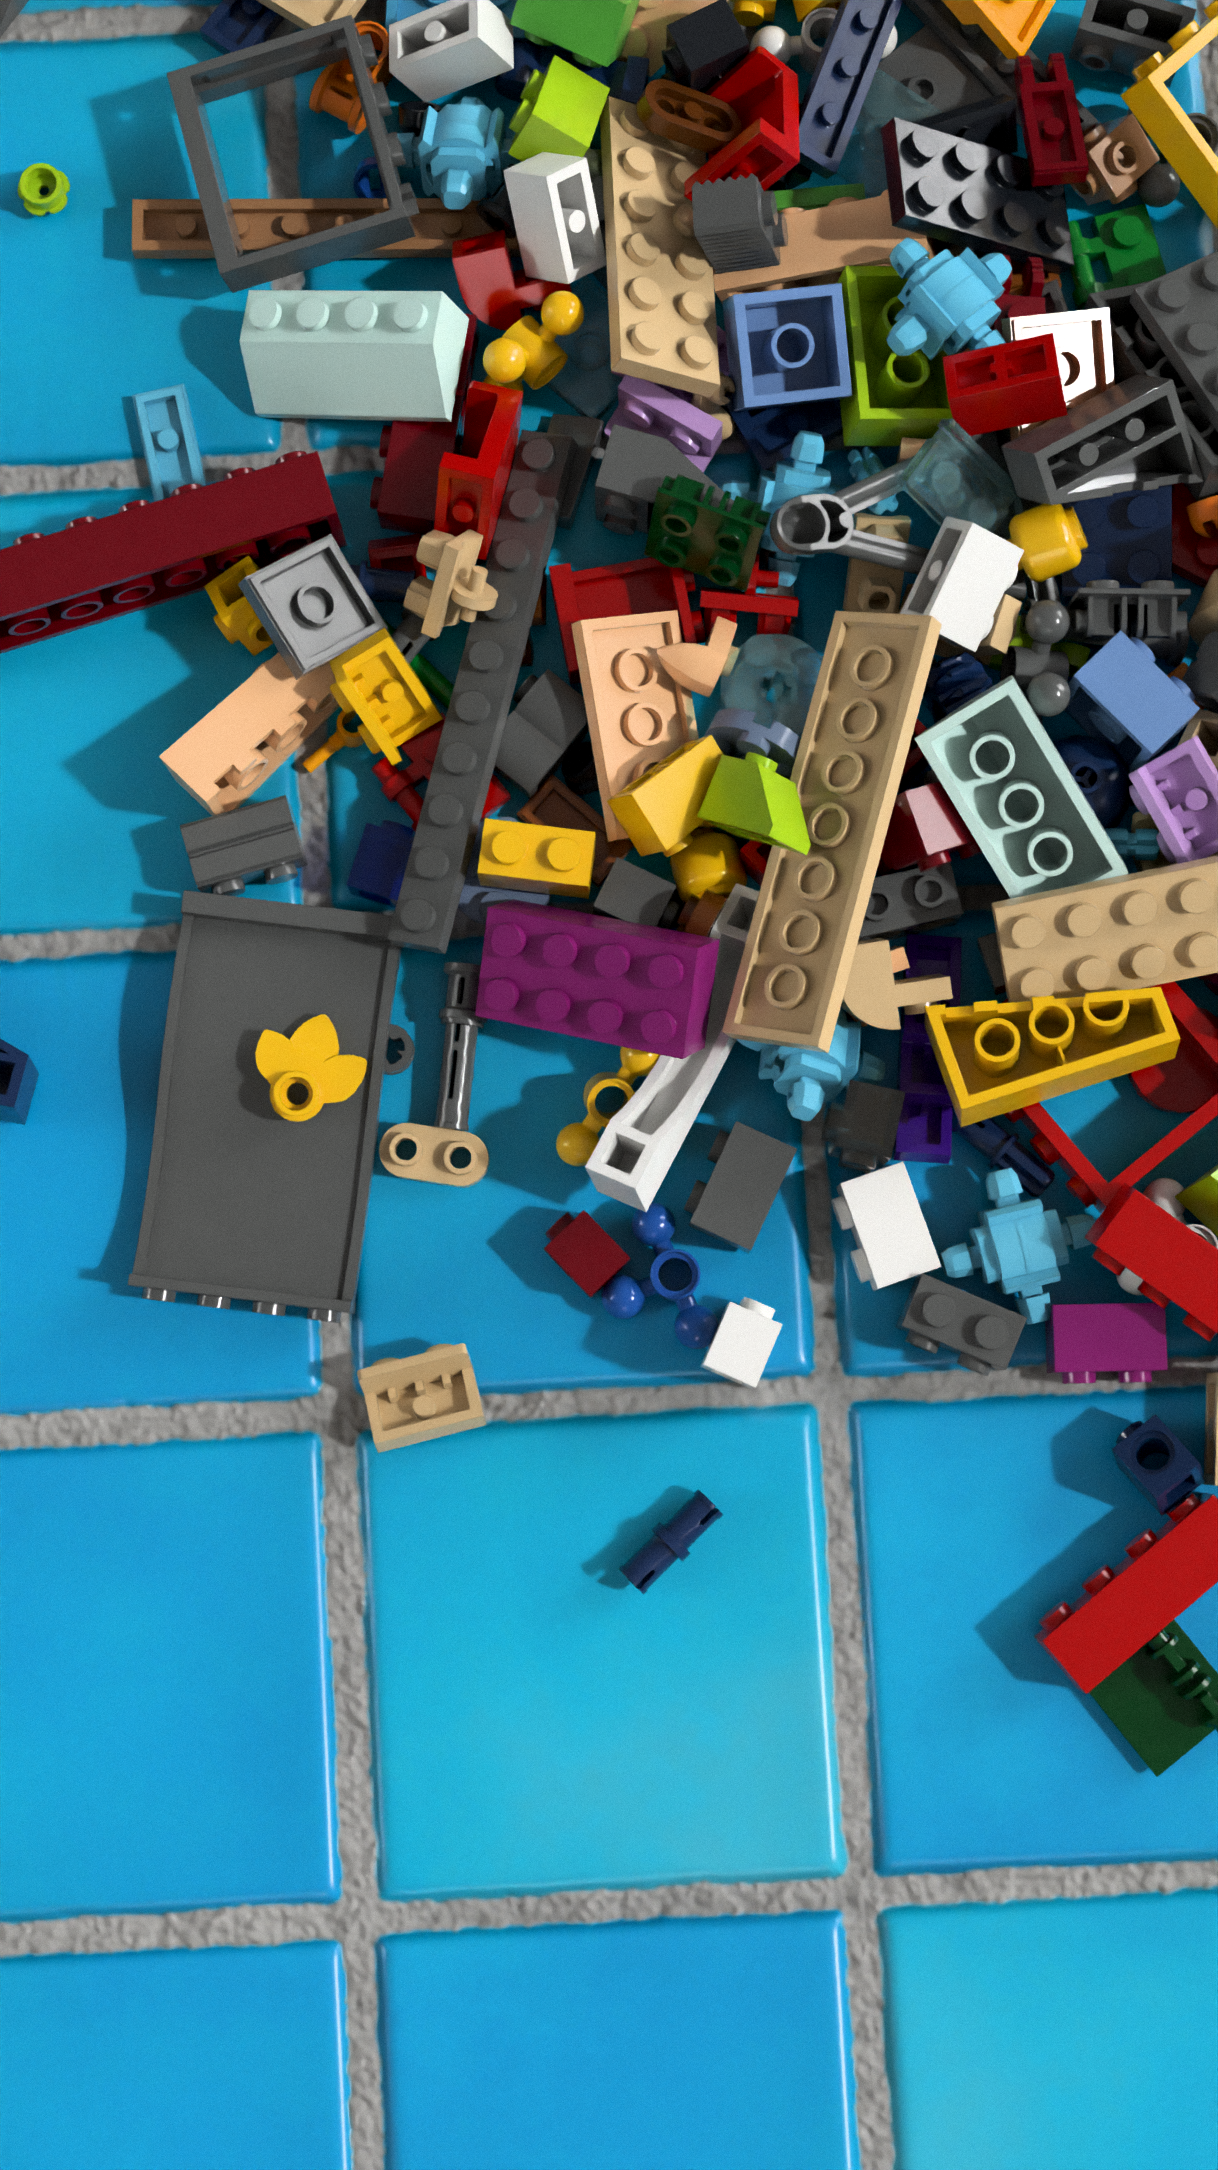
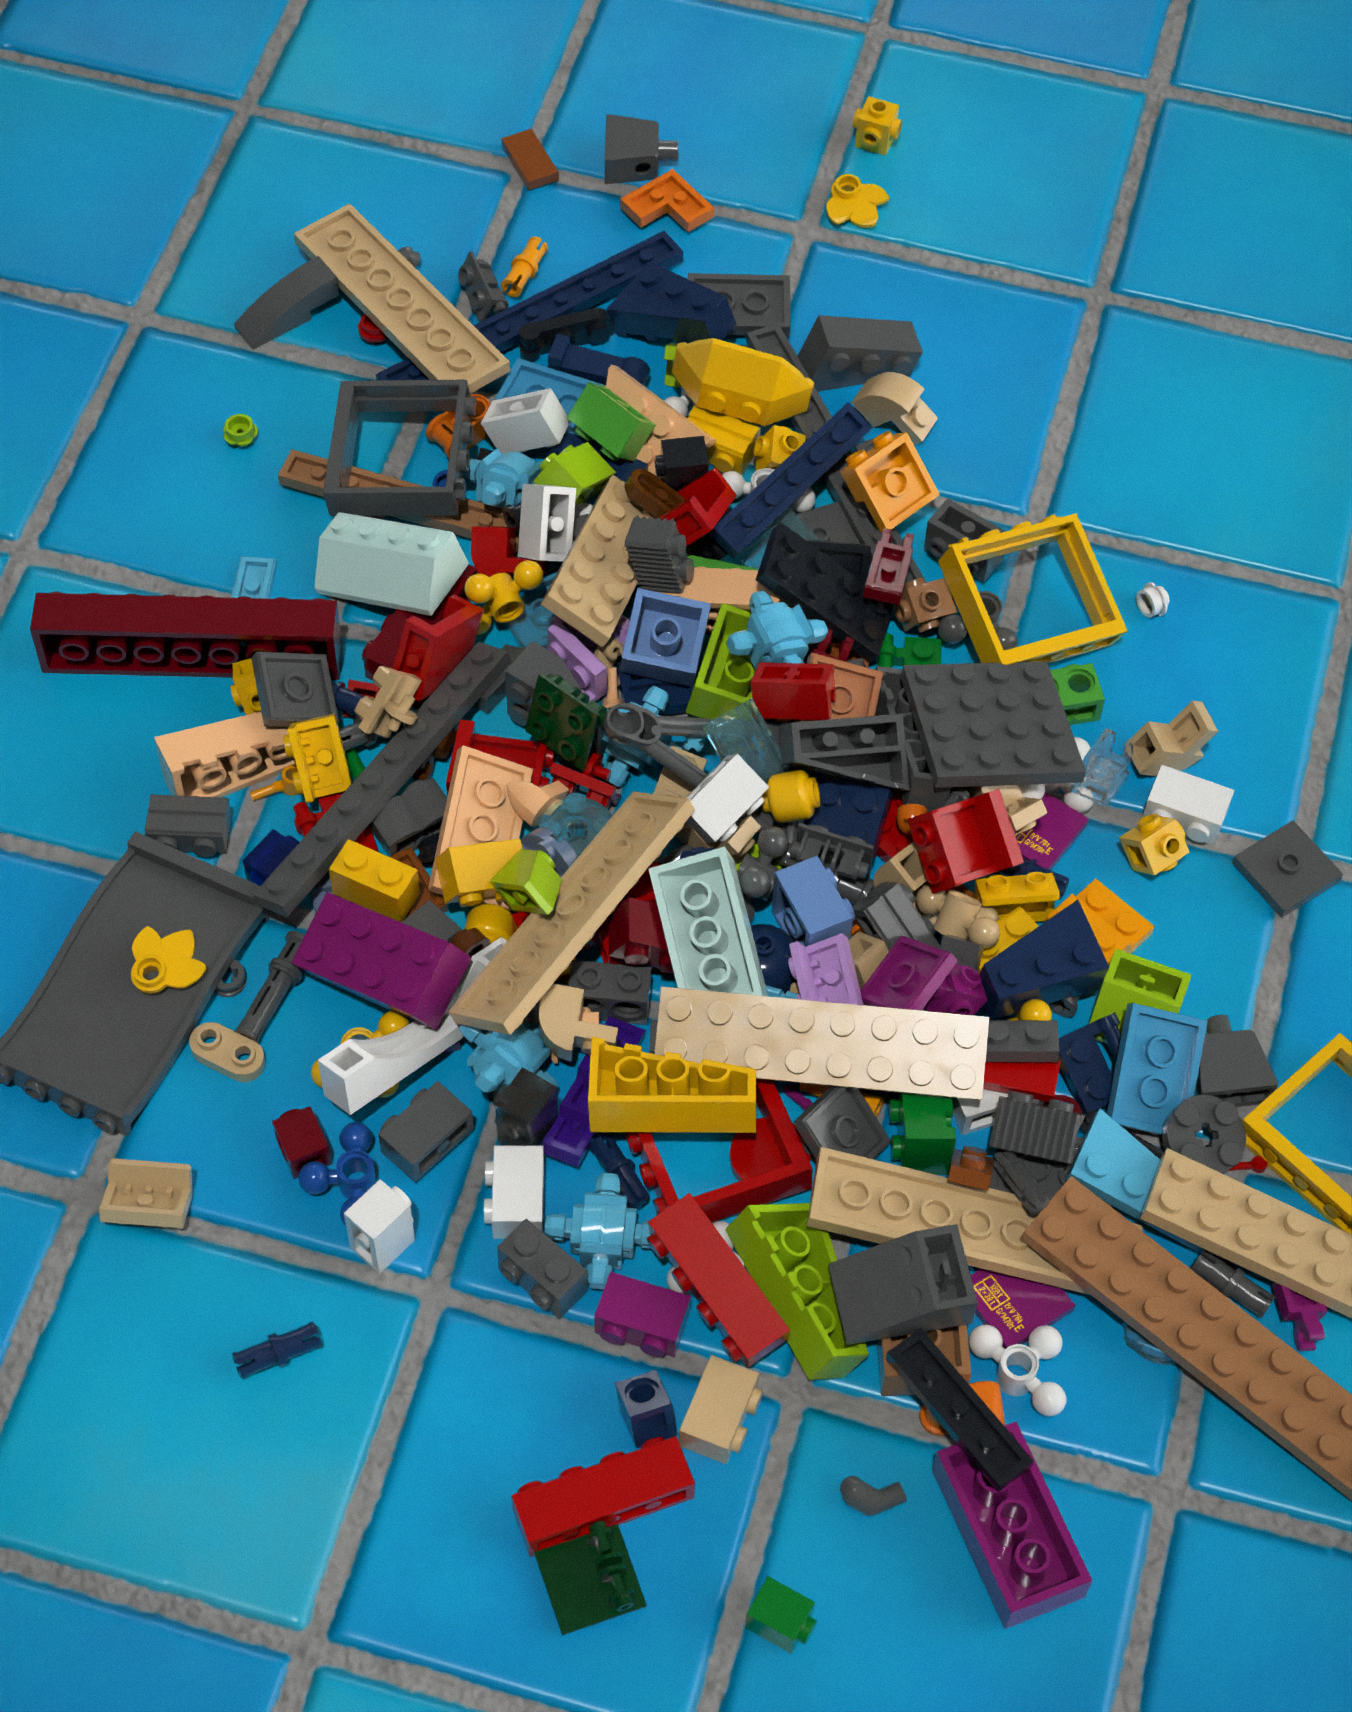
camera: 15 degrees right, 25 degrees down
(735, 456) = (612, 693): none -> light nougat hand

